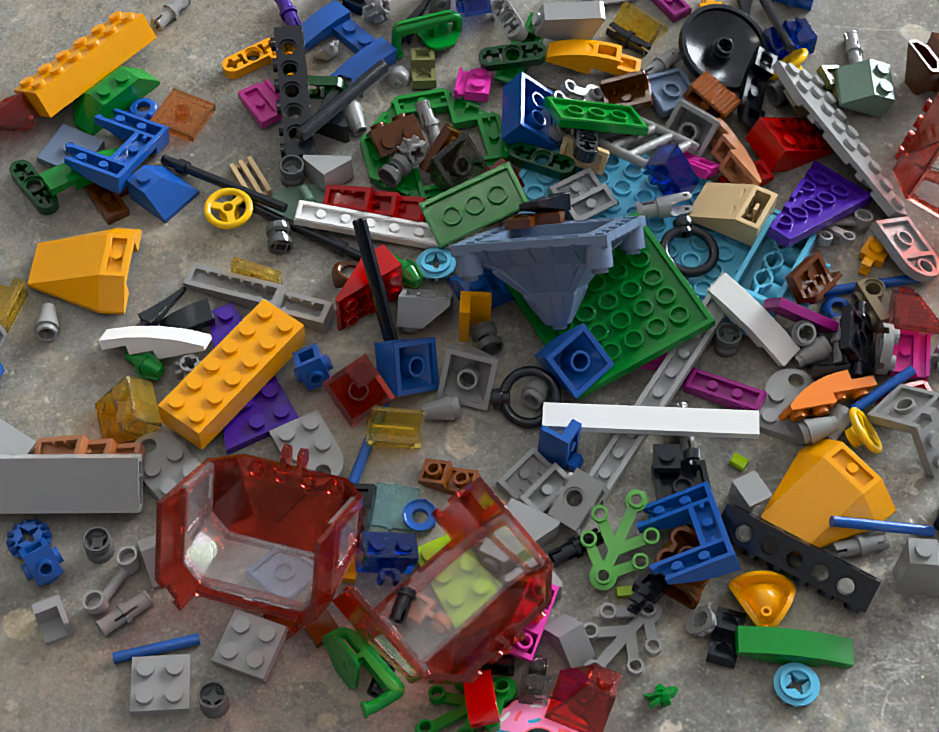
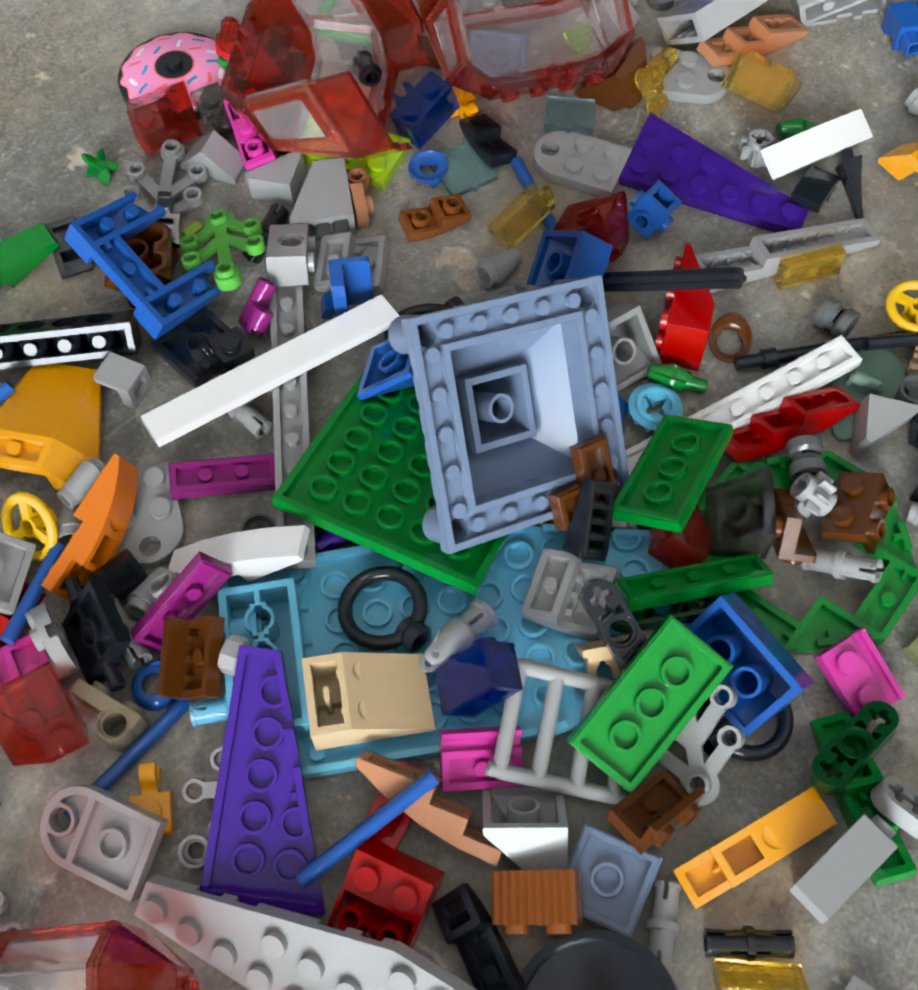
camera: 145 degrees right, 5 degrees up
(190, 461) = (650, 79): none -> clear yellow bar
(232, 374) = (711, 150): light orange brick -> none
(520, 152) = (694, 582): none -> green tile
(631, 476) = (256, 313): none -> magenta piece
(764, 596) = (51, 293): light orange hat -> none
(773, 158) = (367, 828): none -> blue bar
(791, 257) = (229, 653): none -> light grey tile

